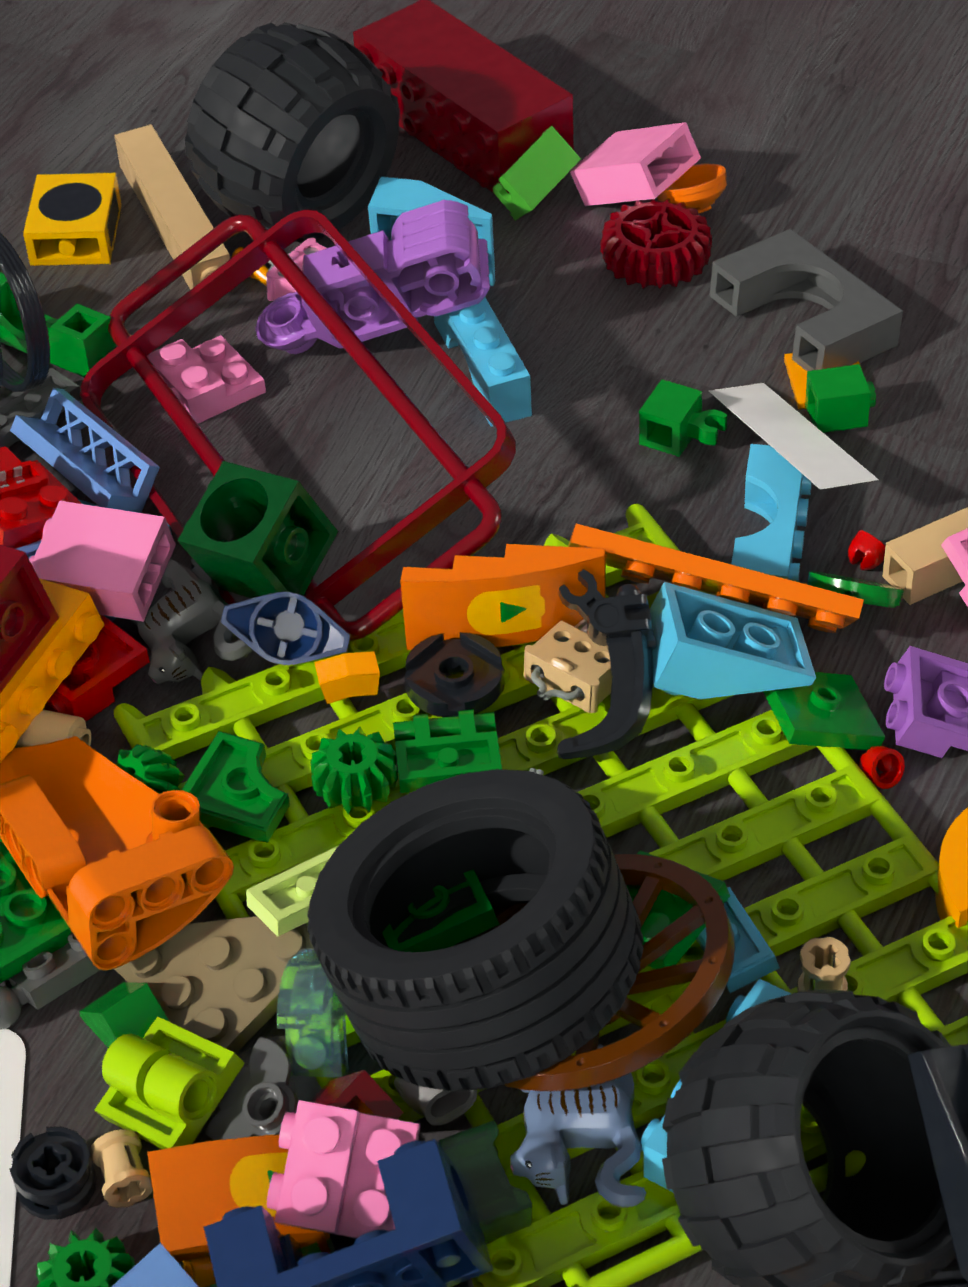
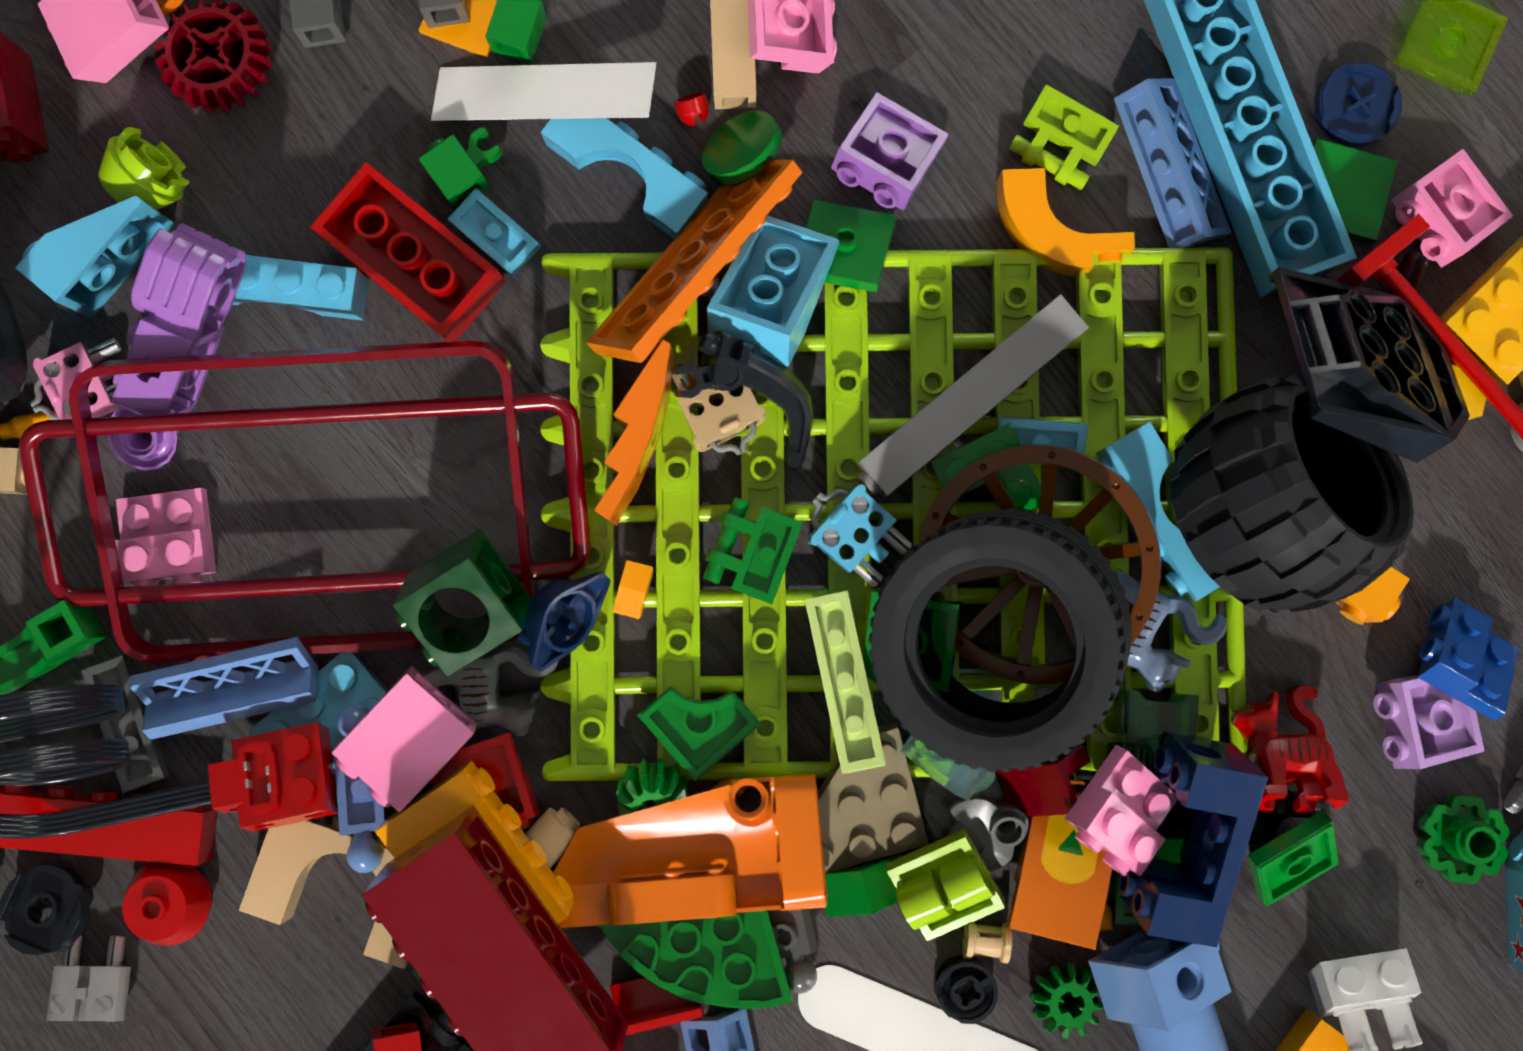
camera: 70 degrees left, 40 degrees up
(354, 770) = (735, 645): green gear -> none
(445, 696) = (655, 496): black plate -> none
(523, 234) = (141, 169): none -> lime cone
(535, 173) = (63, 109): bright green hinge -> none
(570, 413) = (409, 253): none -> red brick
(635, 467) = (494, 232): none -> medium azure plate
(749, 856) = (970, 397): none -> light grey brick
(817, 965) = (1106, 408): tan bush -> none
(888, 761) = (914, 232): red hinge -> none

